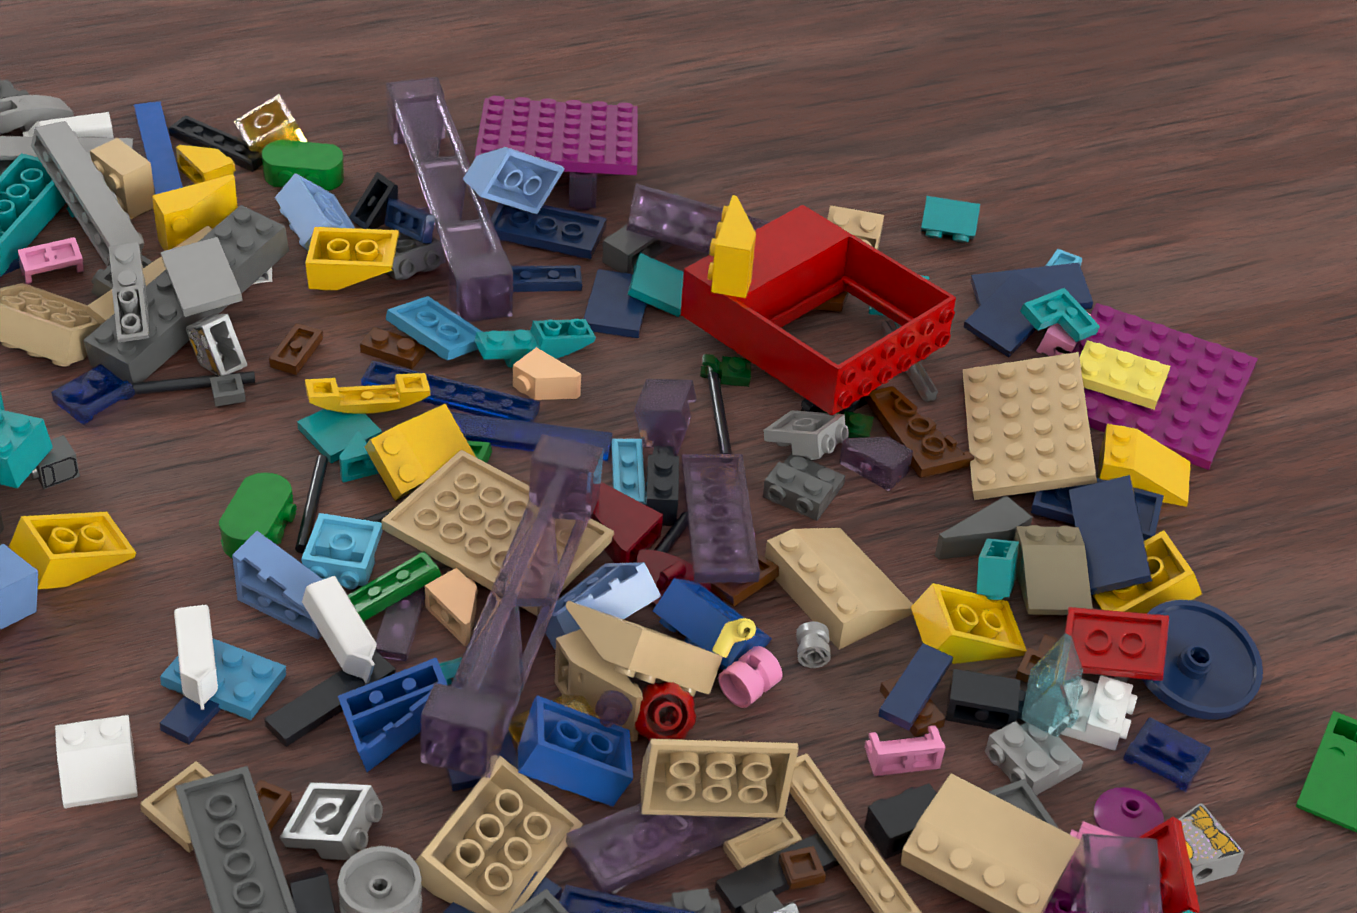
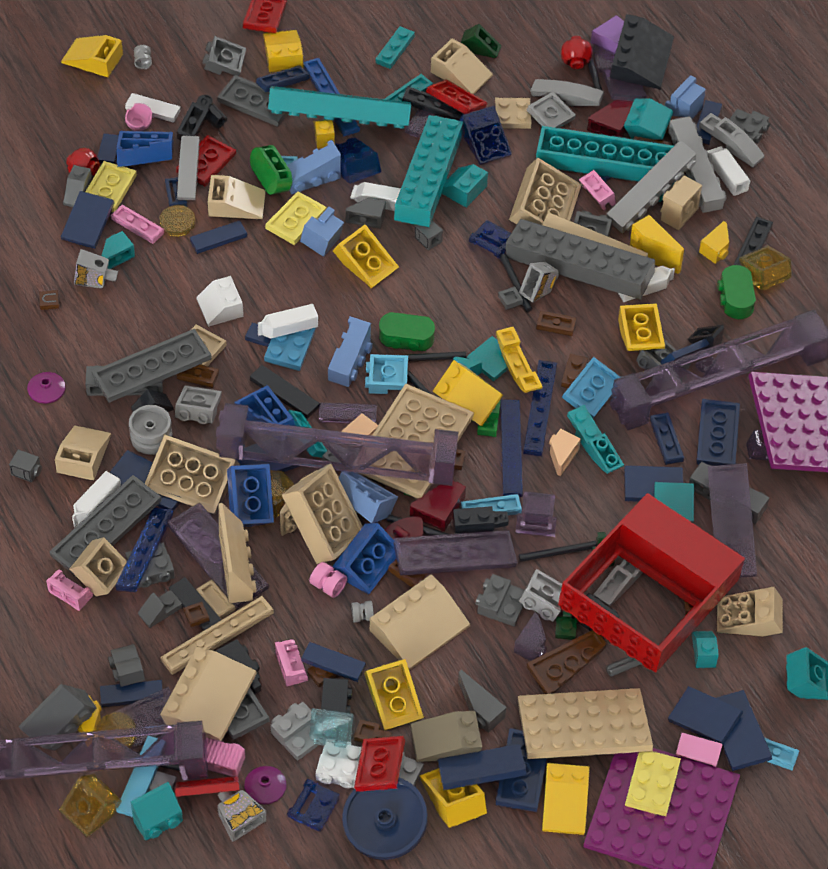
camera: 85 degrees right, 10 degrees up
(129, 292) = (544, 228): light grey slope -> none
(157, 146) = (733, 217): blue tile -> none
(201, 276) = (578, 254): light grey tile -> none
(310, 207) = (686, 310): light blue slope -> none
(341, 627) = (318, 378): white piece -> none
(394, 585) = (363, 401): green tile -> none
(513, 178) = (724, 393): light blue slope -> none
(613, 708) = (276, 506): clear purple tile -> none
(679, 714) = (288, 538): red plant -> none
(732, 252) = (654, 508): yellow slope -> none
(734, 632) = (341, 558): light yellow arm -> none
(997, 568) = (436, 699): teal brick -> none
(1061, 309) = (701, 737): teal plate -> none

